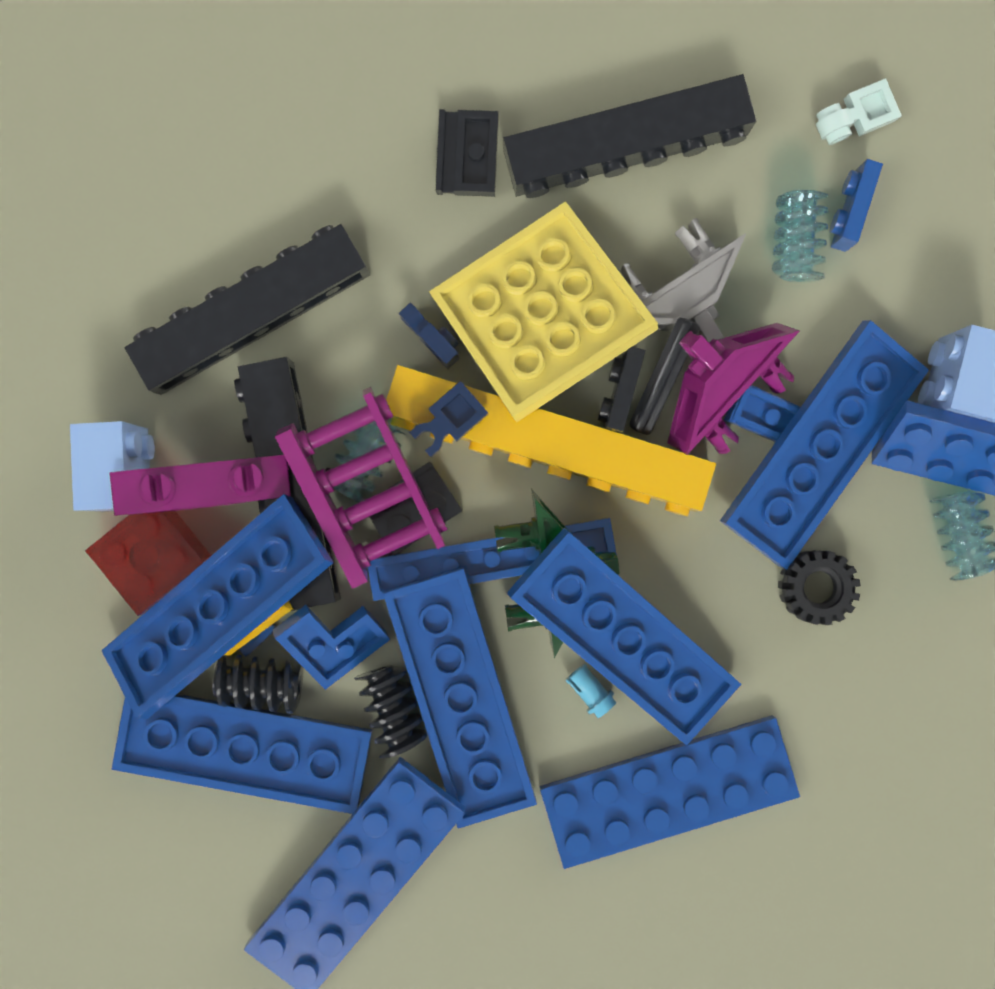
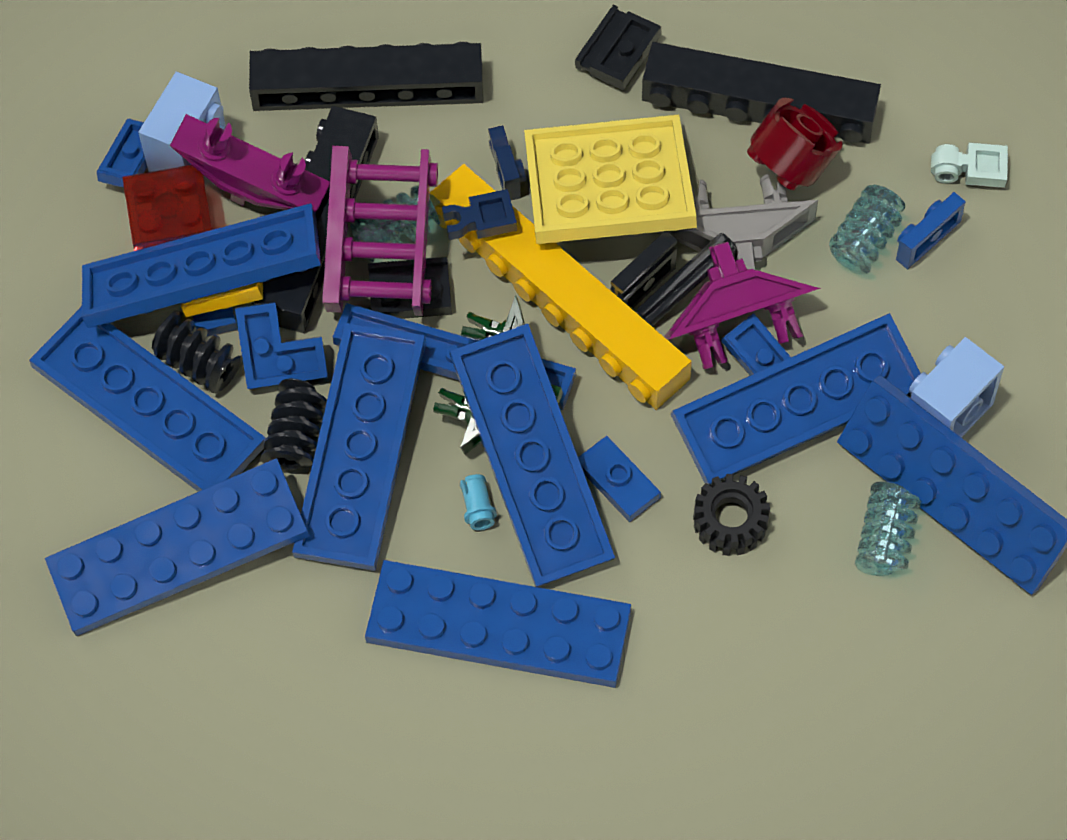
camera: 30 degrees right, 25 degrees down
(71, 528) = (124, 156): none -> blue plate
(698, 184) = (794, 144): none -> dark red brick
(699, 600) = (618, 479): none -> blue plate

